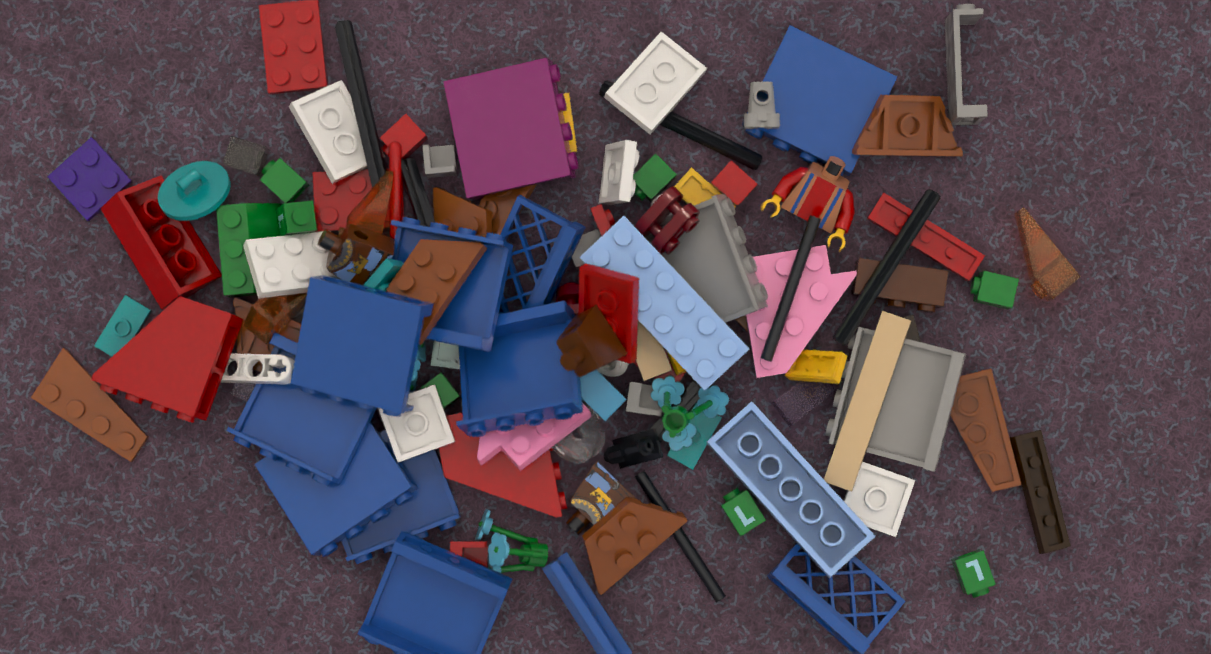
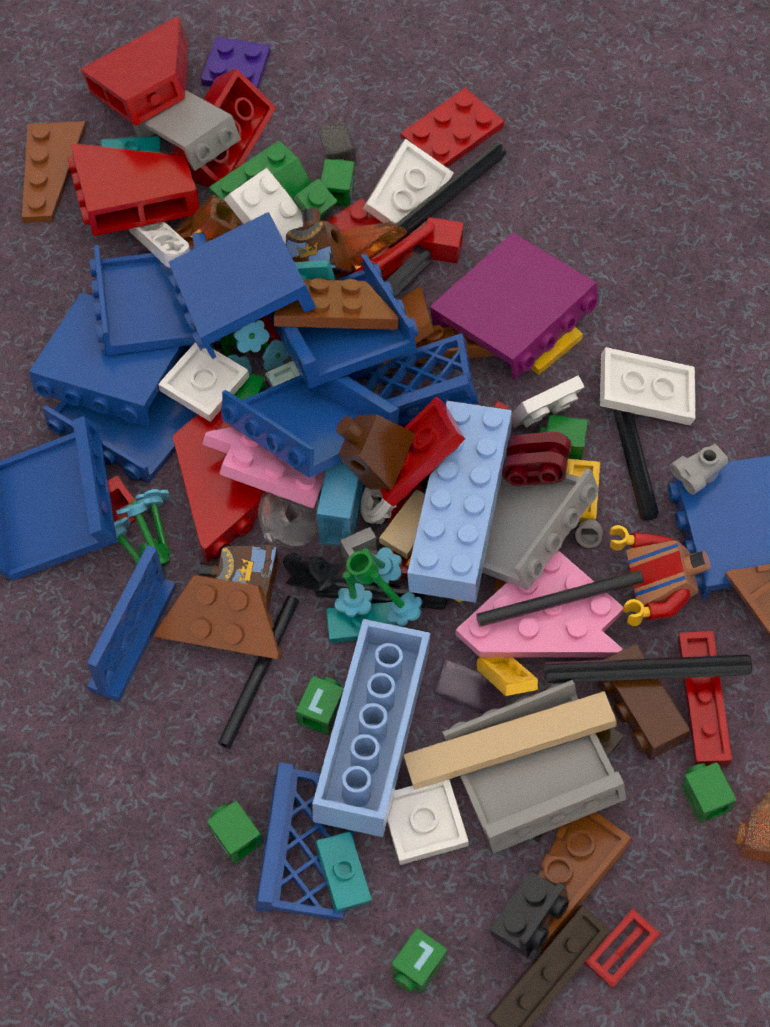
camera: 55 degrees right, 25 degrees down
(56, 269) = (142, 74): none -> red slope
(142, 273) = (194, 127): none -> light grey panel
(194, 190) = (280, 125): teal shield -> none
(439, 161) = (440, 273): light grey panel -> none
(734, 183) = (615, 500): red panel -> none
(744, 218) = (591, 535): none -> light grey hinge
(794, 636) = (234, 831): none -> green brick
(876, 580) = (343, 872): none -> teal plate
(996, 477) = (529, 914): none -> black bracket
(1053, 421) = (602, 971): none -> red tile

